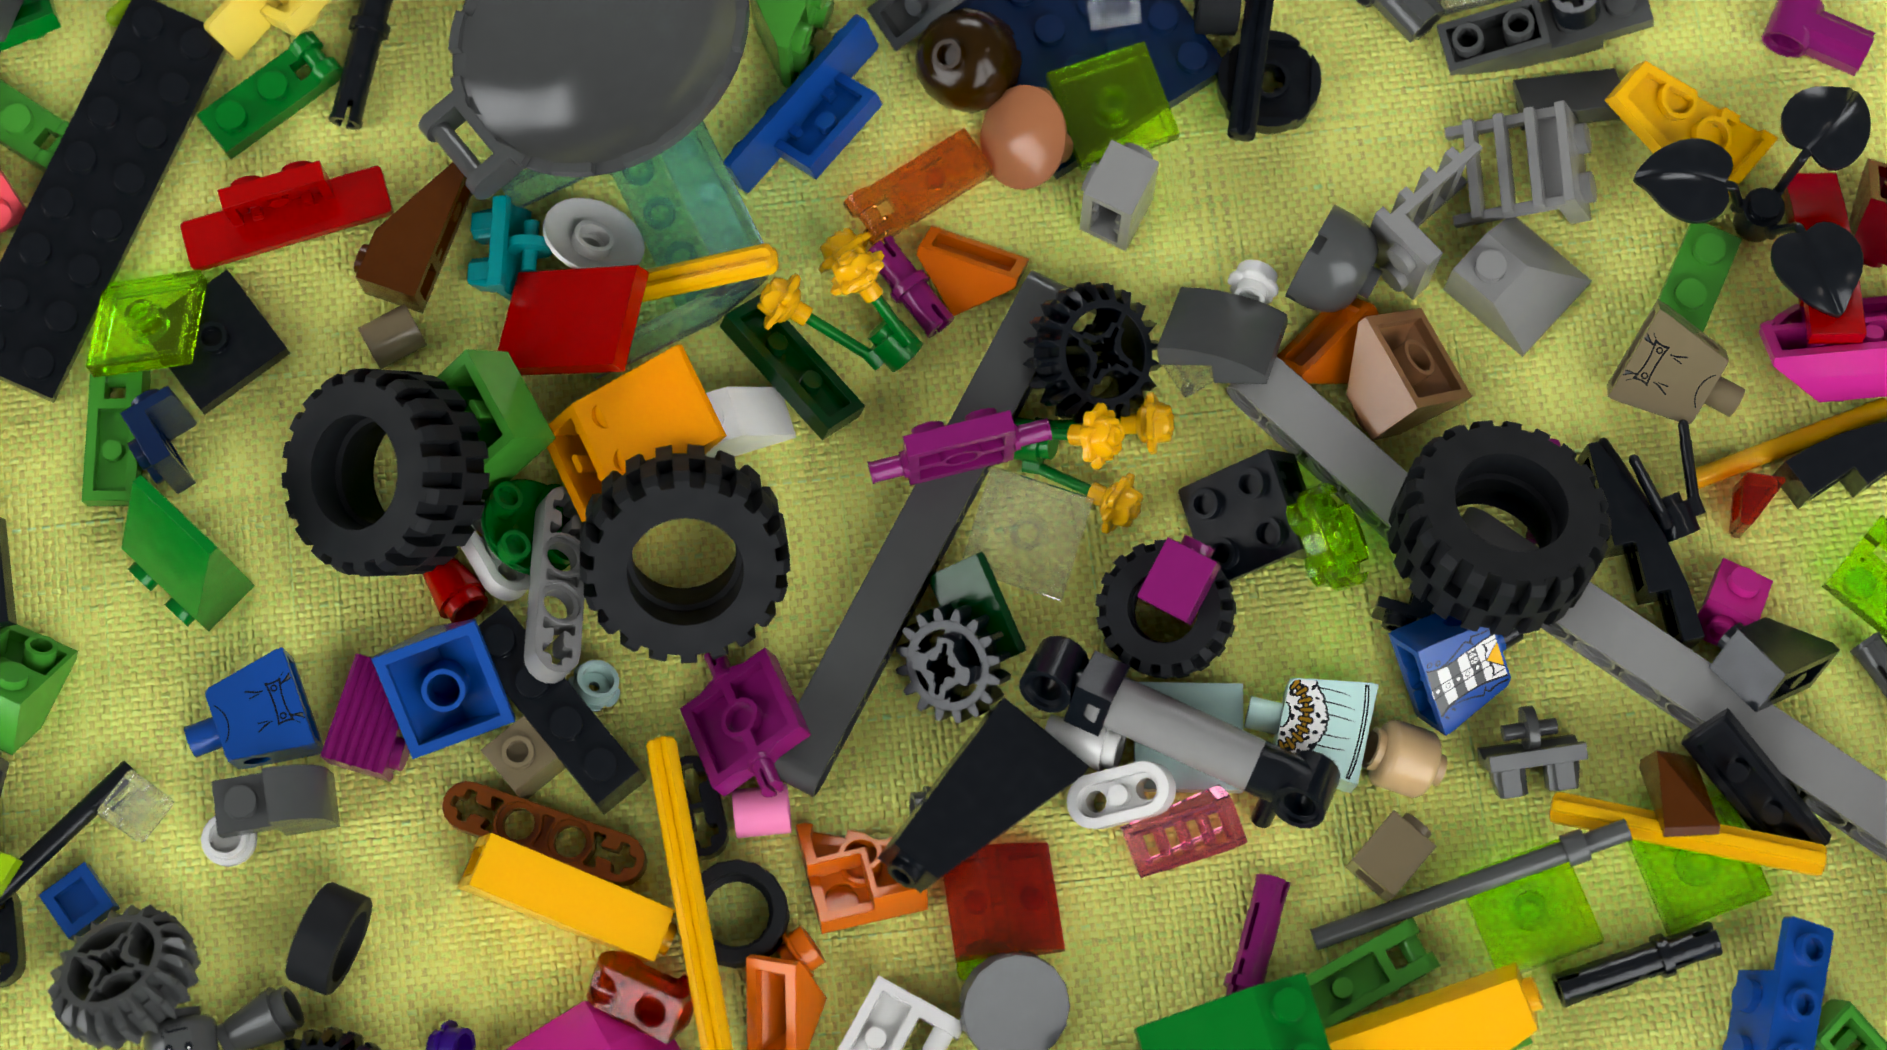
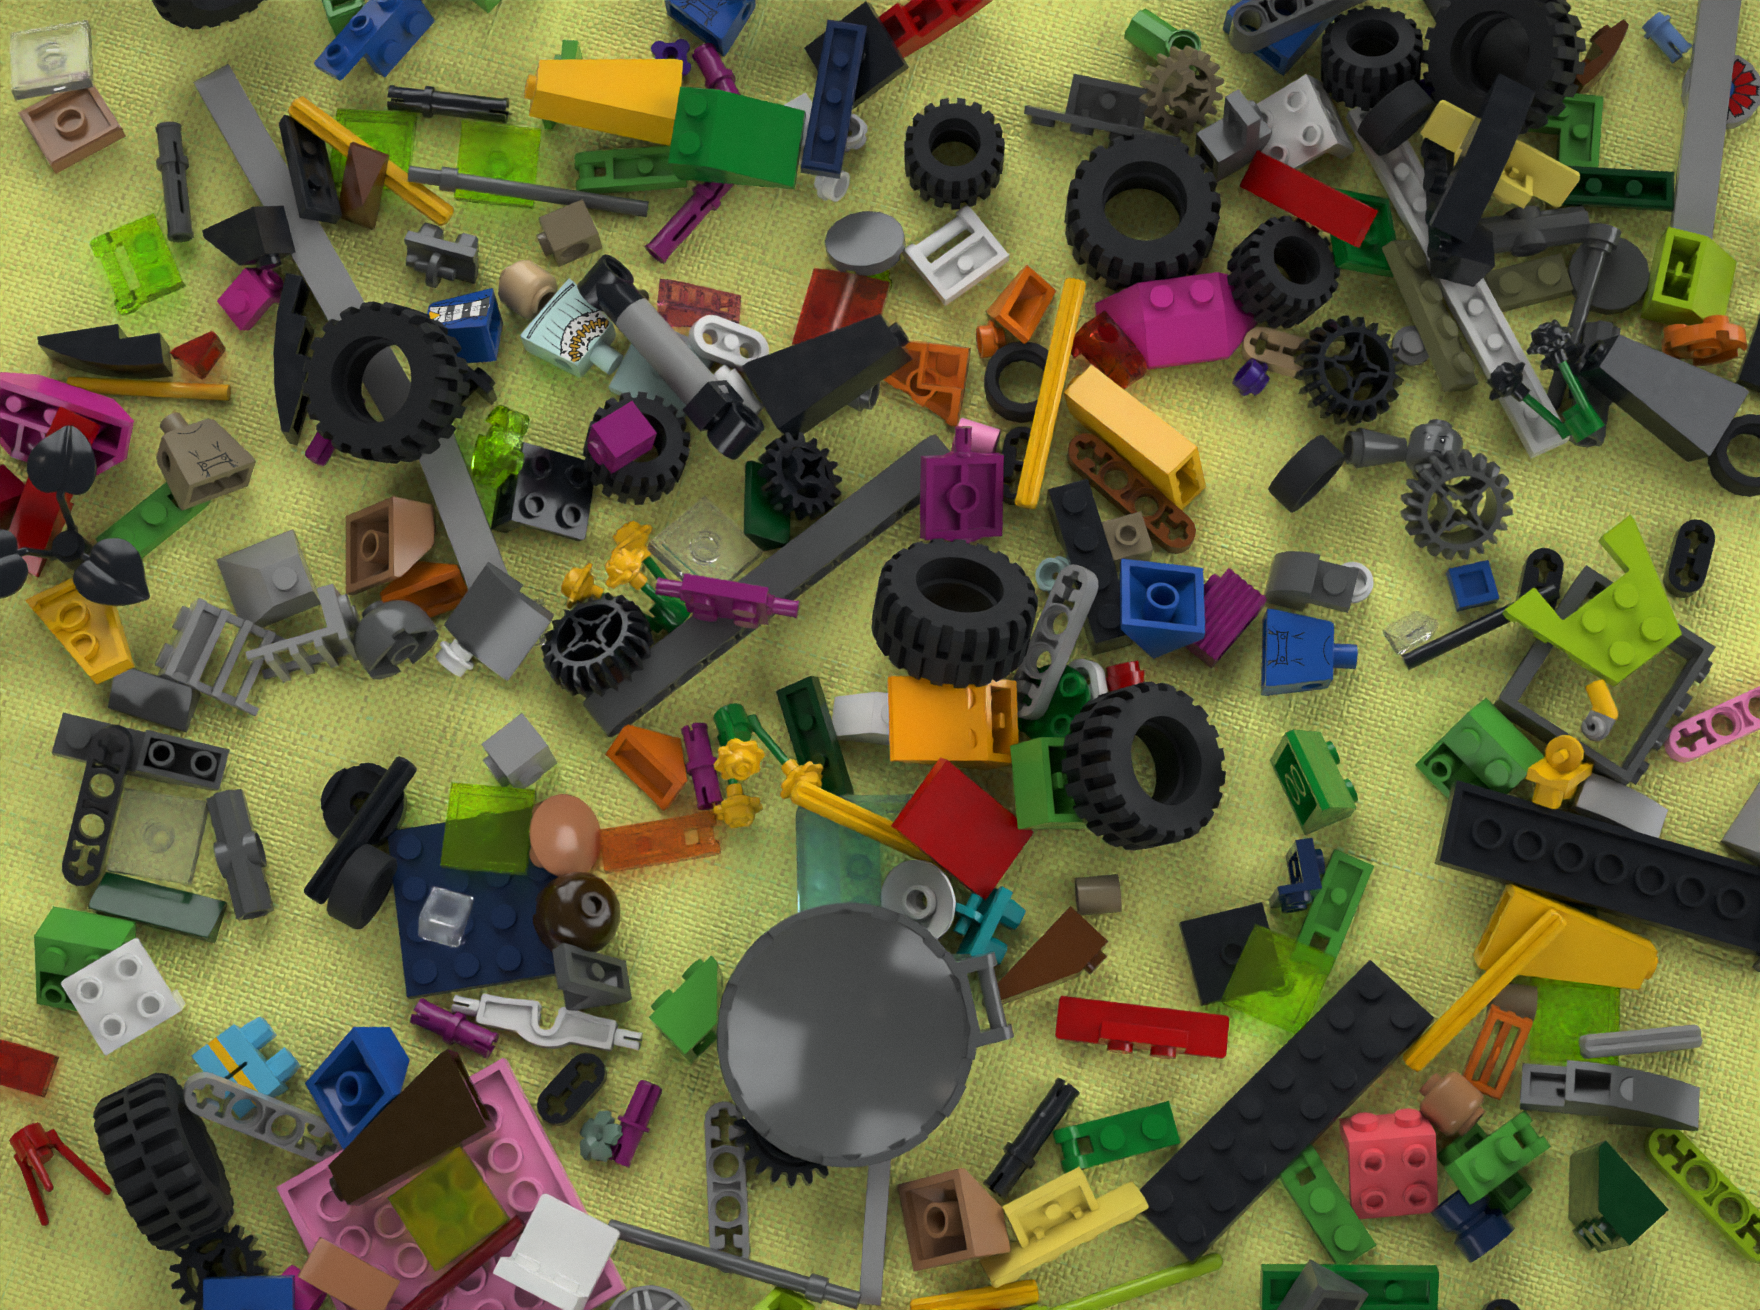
camera: 155 degrees left, 0 degrees up
(814, 114) = (707, 924): blue bracket -> none
(1671, 513) = (259, 372): black plant -> none

